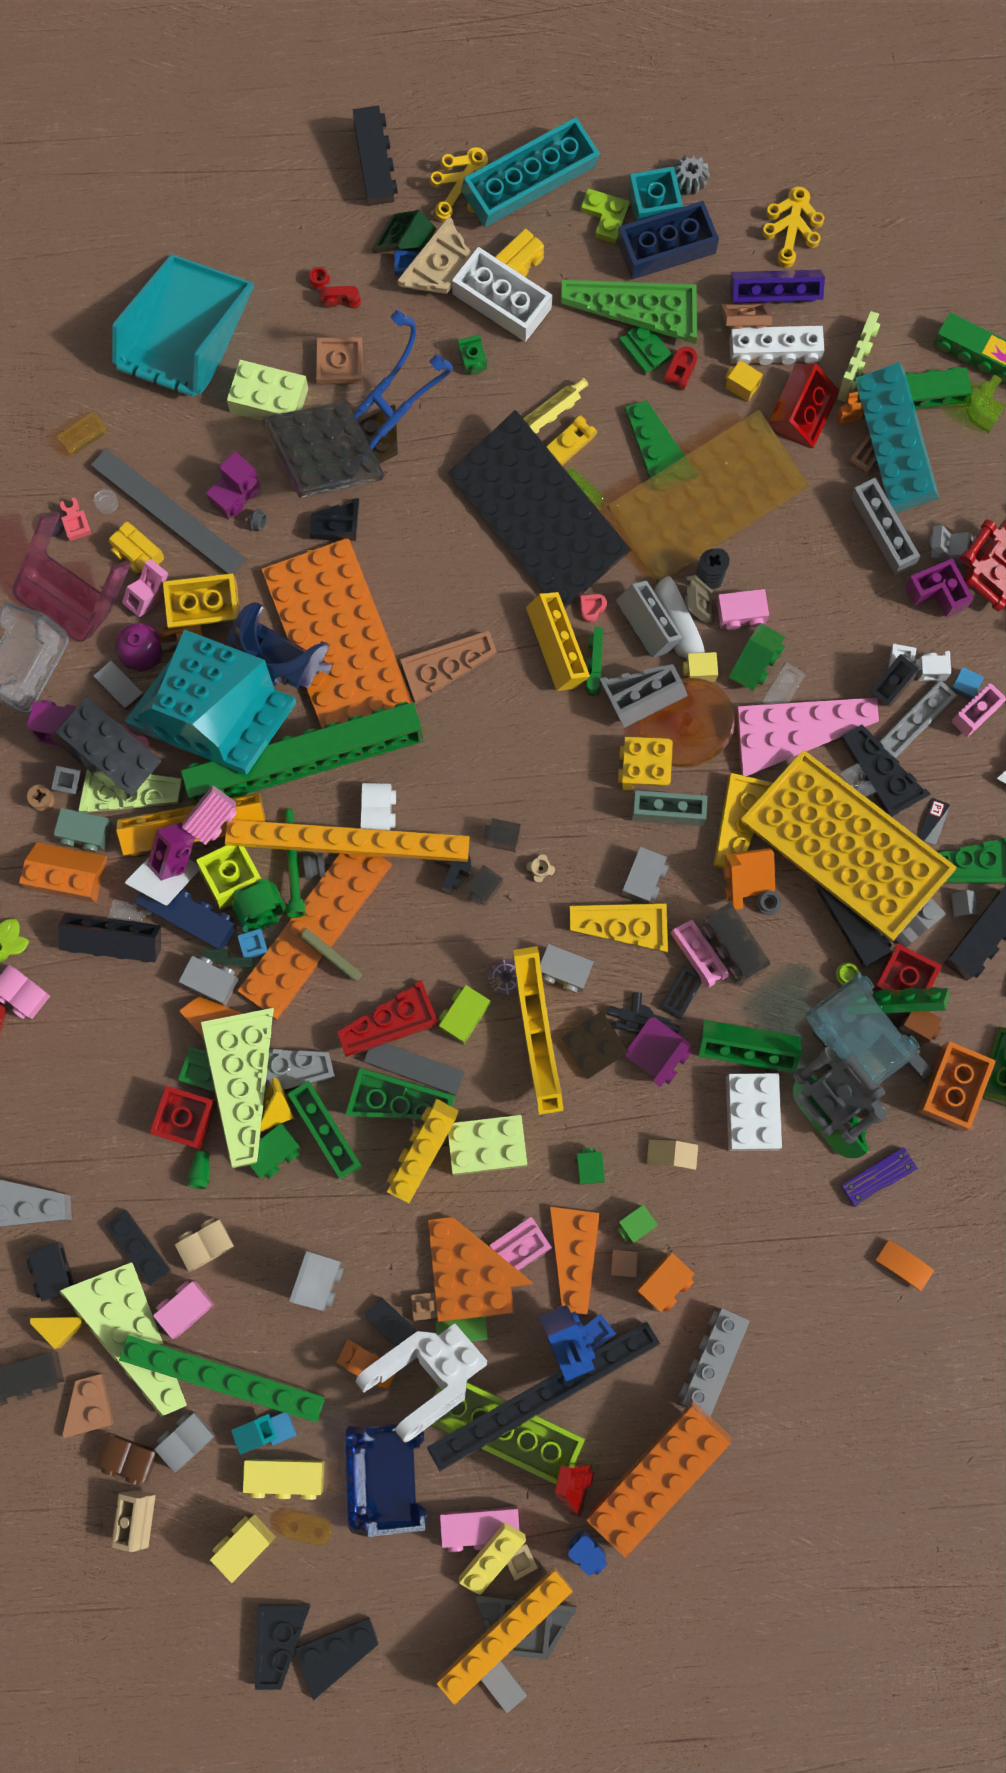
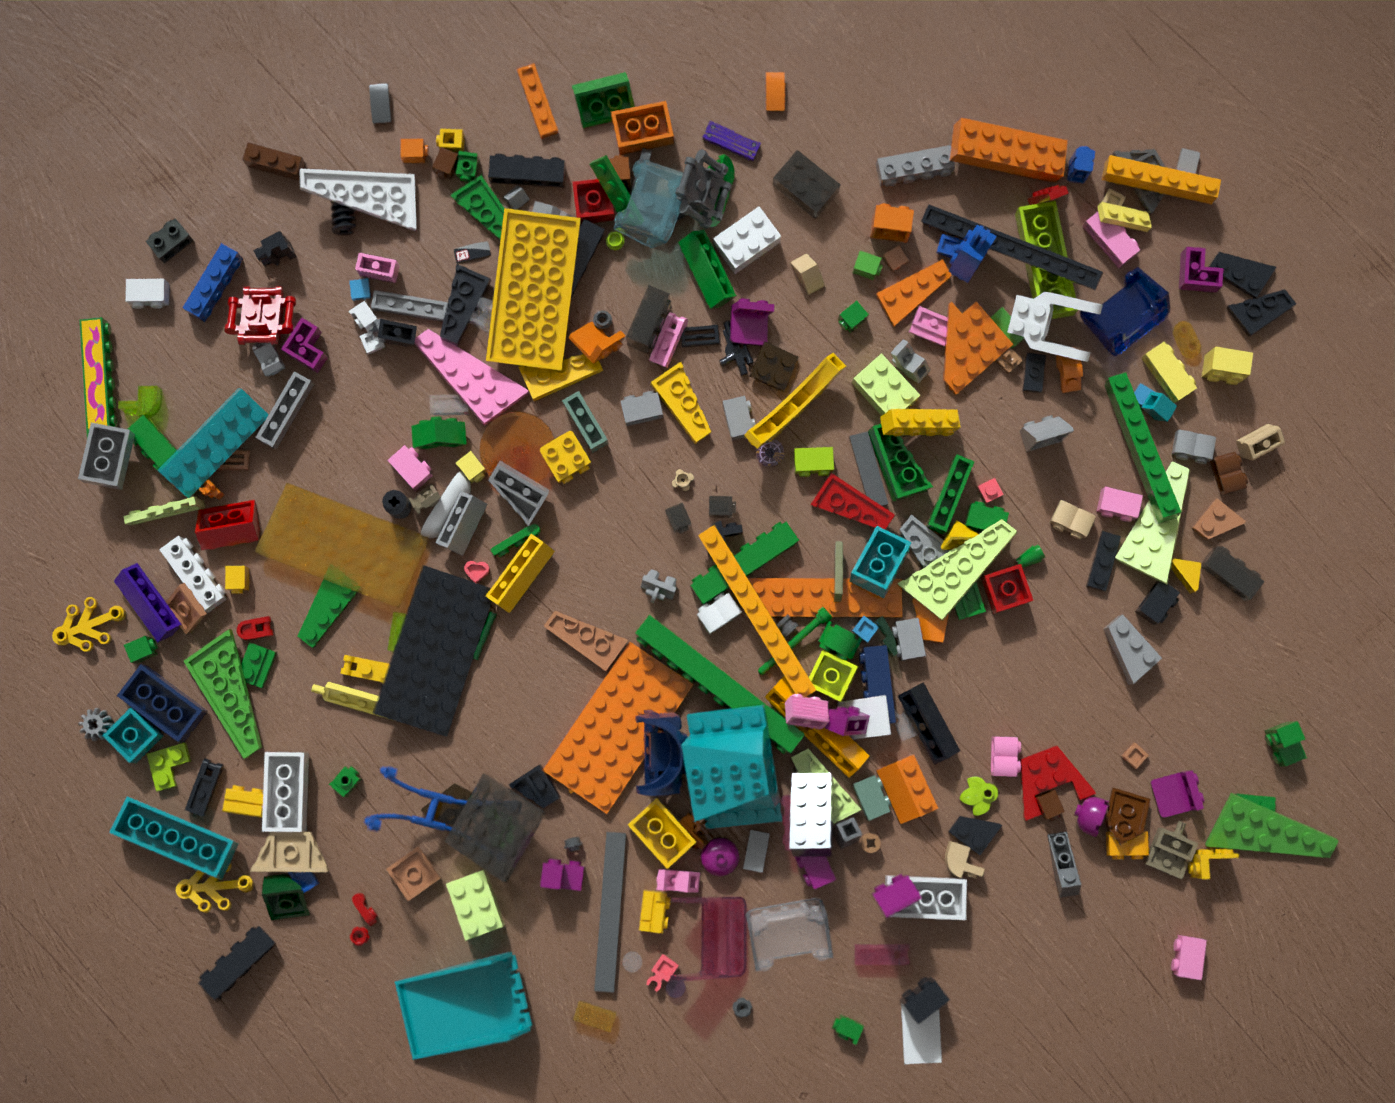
camera: 125 degrees left, 5 degrees up
(300, 1180) = (990, 490): none -> coral plate
(307, 1003) = (880, 562): none -> teal brick
(372, 1591) = (1195, 275): none -> magenta brick
(409, 874) = (750, 559): none -> green brick
(457, 763) = (657, 588): none -> light grey hips
(497, 1192) = (909, 362): none -> light grey brick
(521, 572) = (484, 635): none -> dark green piece
(560, 230) = (204, 787): none -> black plate
(734, 254) = (141, 649): none -> green brick
(773, 1222) = (806, 184): none -> clear smoke brick
(950, 328) = (106, 456): none -> light grey brick

